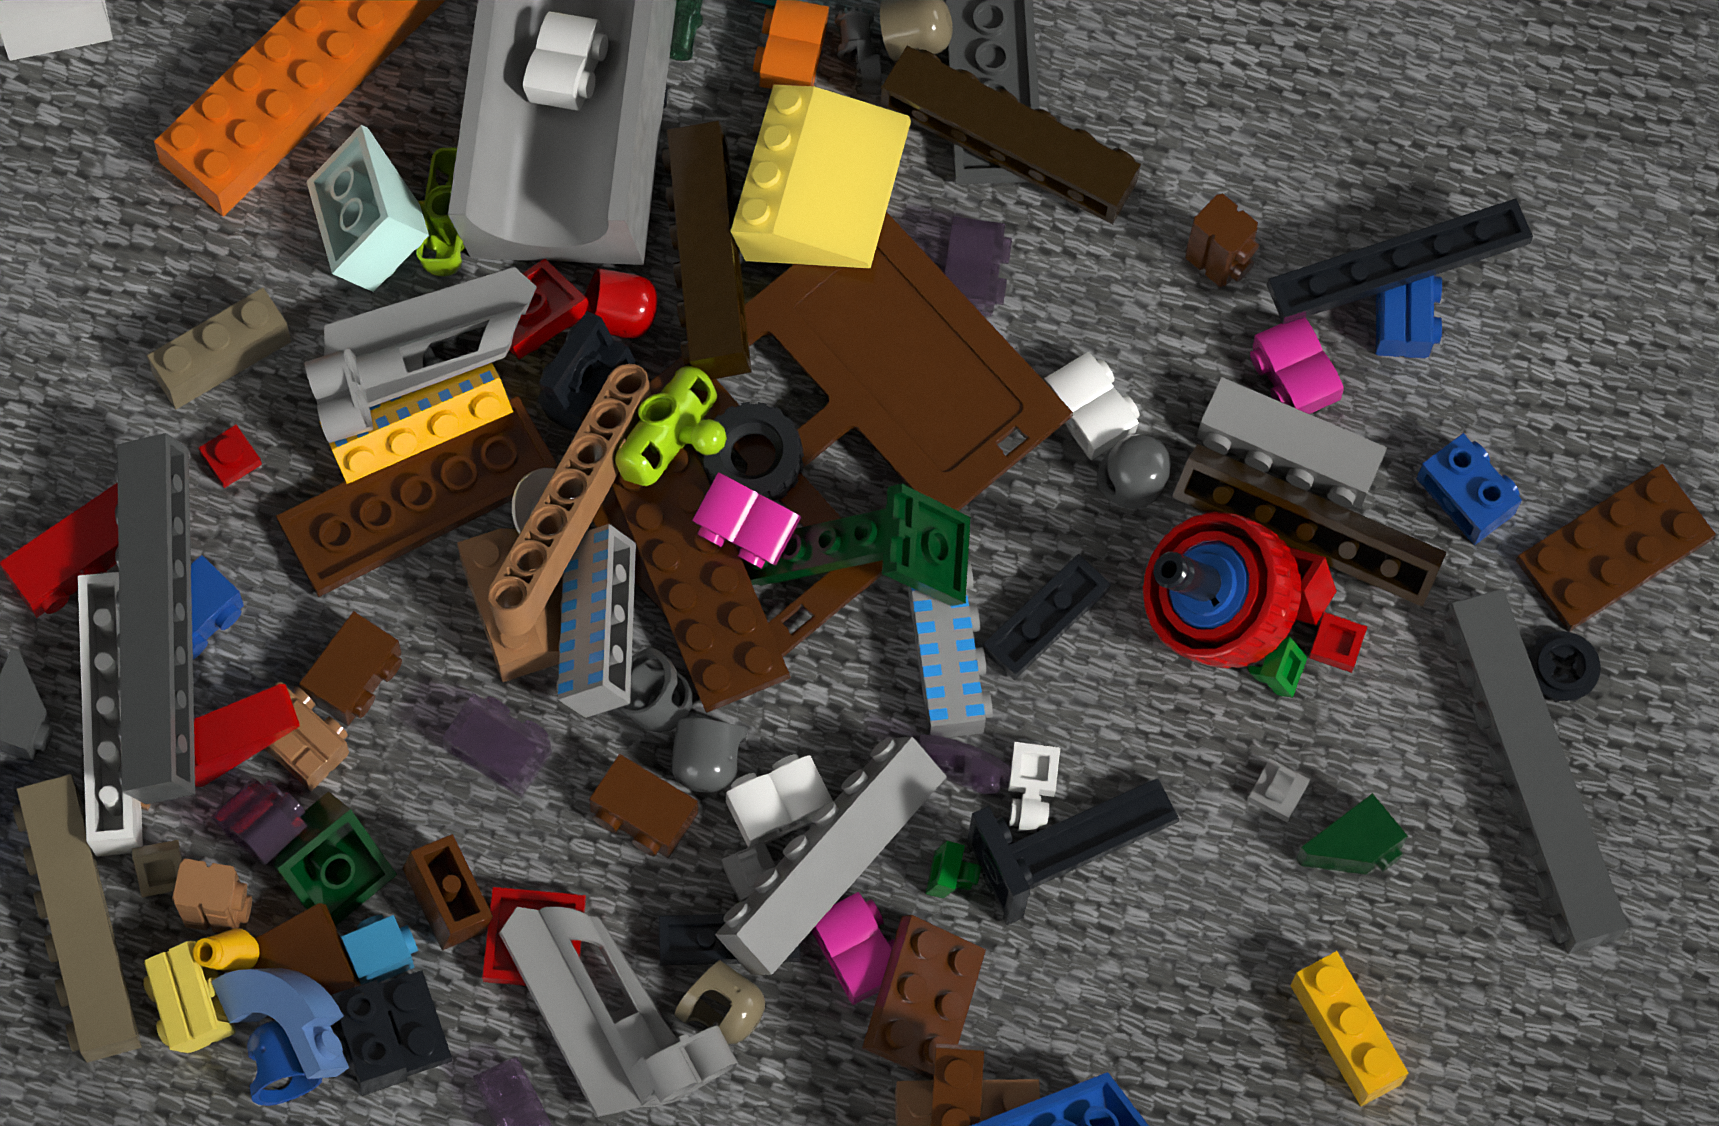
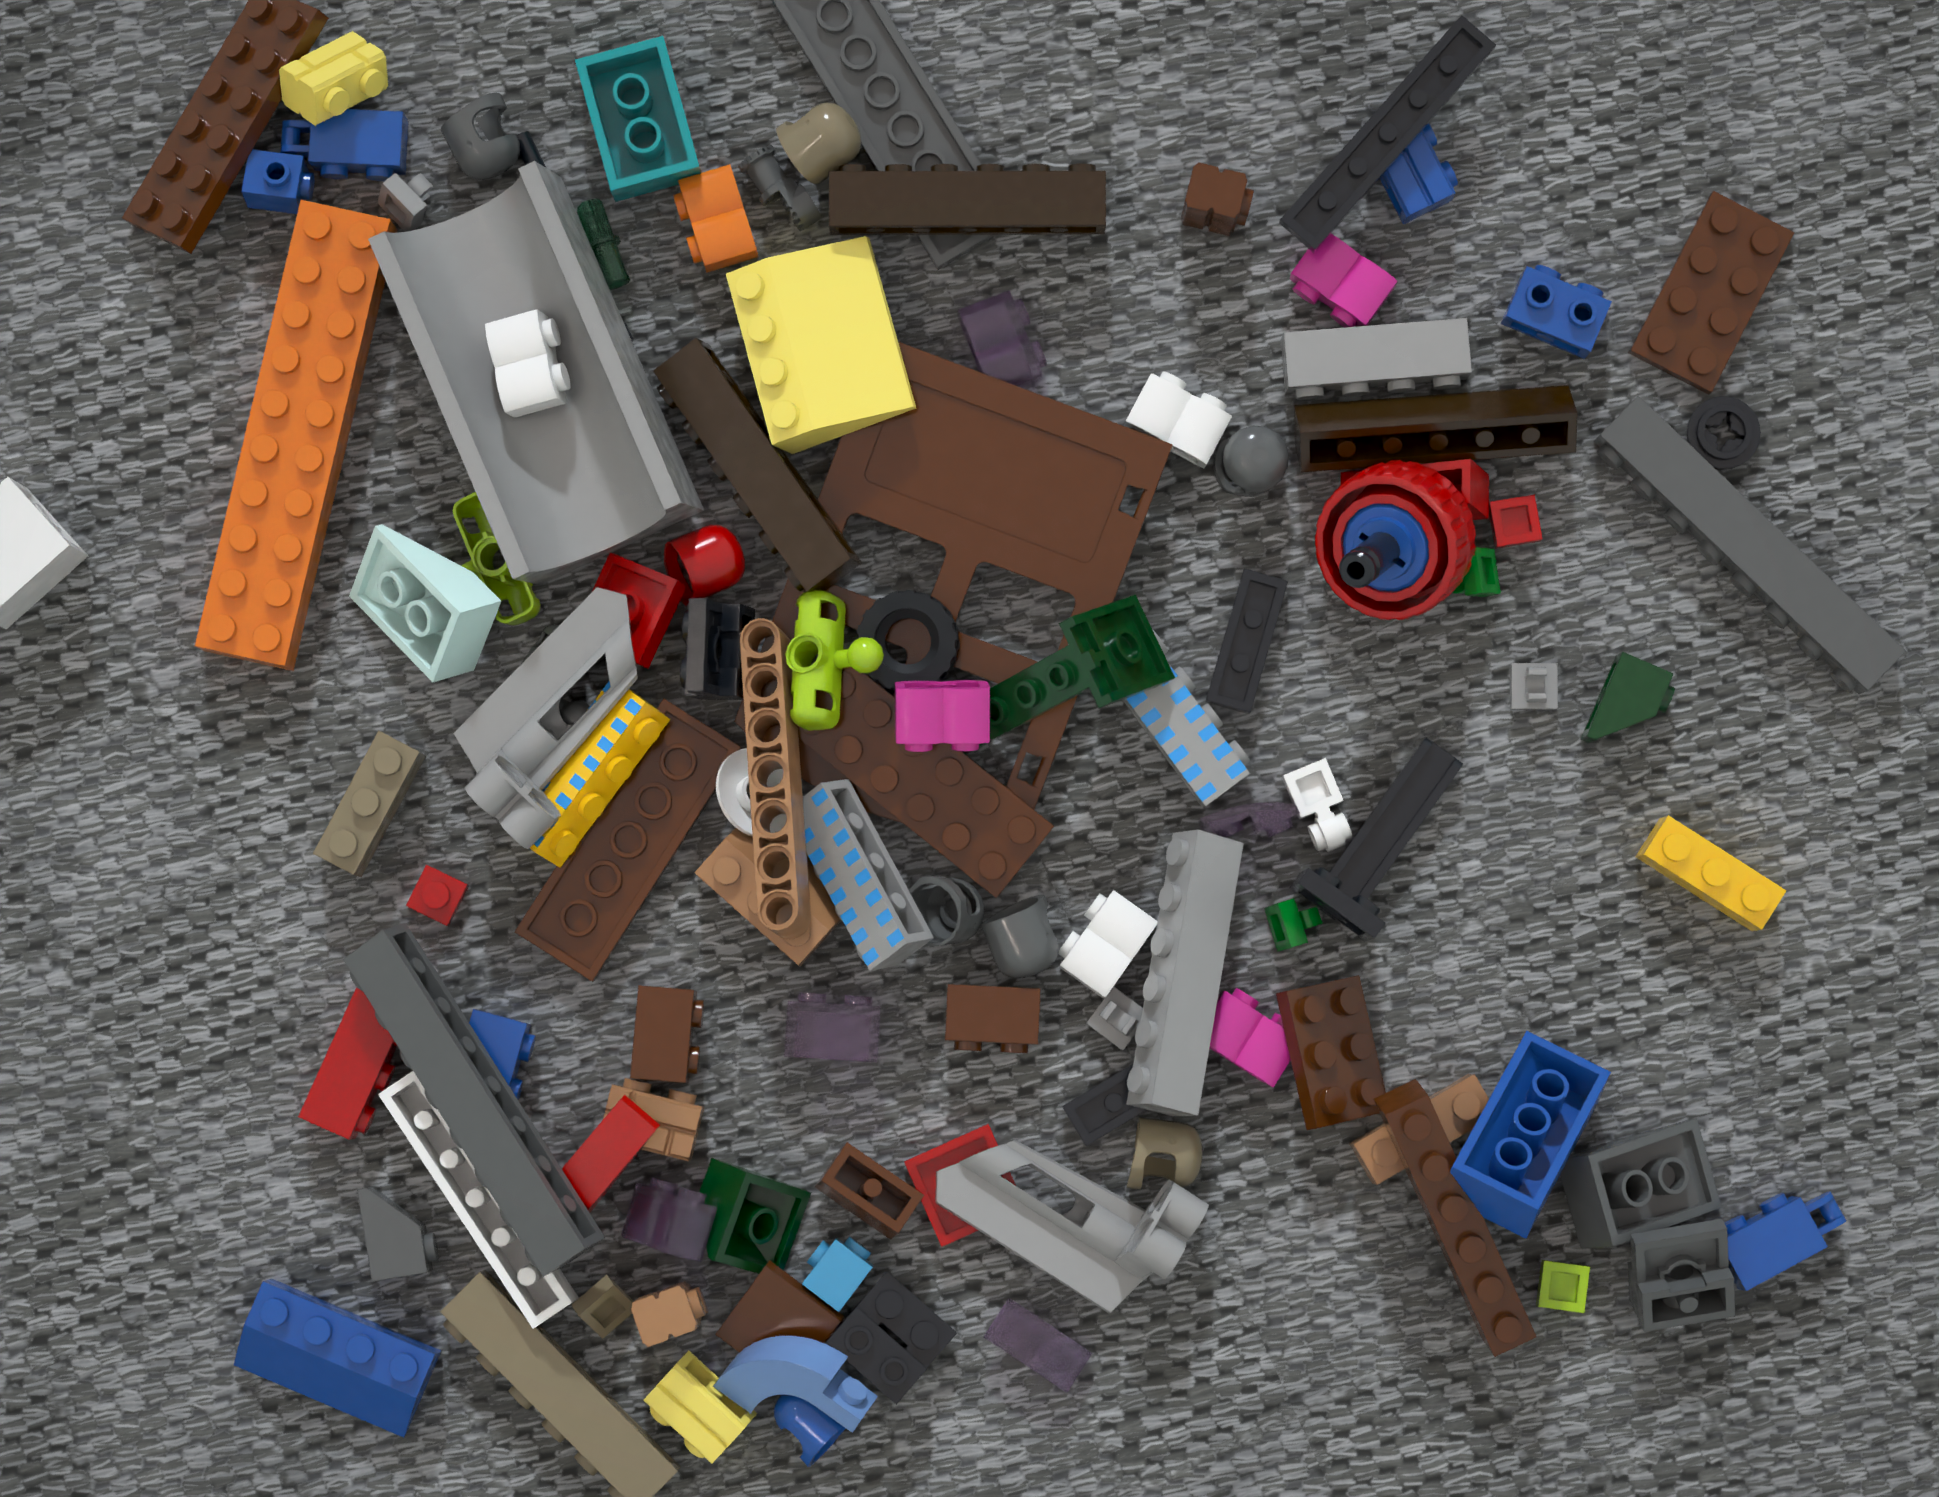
camera: 25 degrees left, 15 degrees up
(227, 951) = (711, 1350): yellow cone -> none

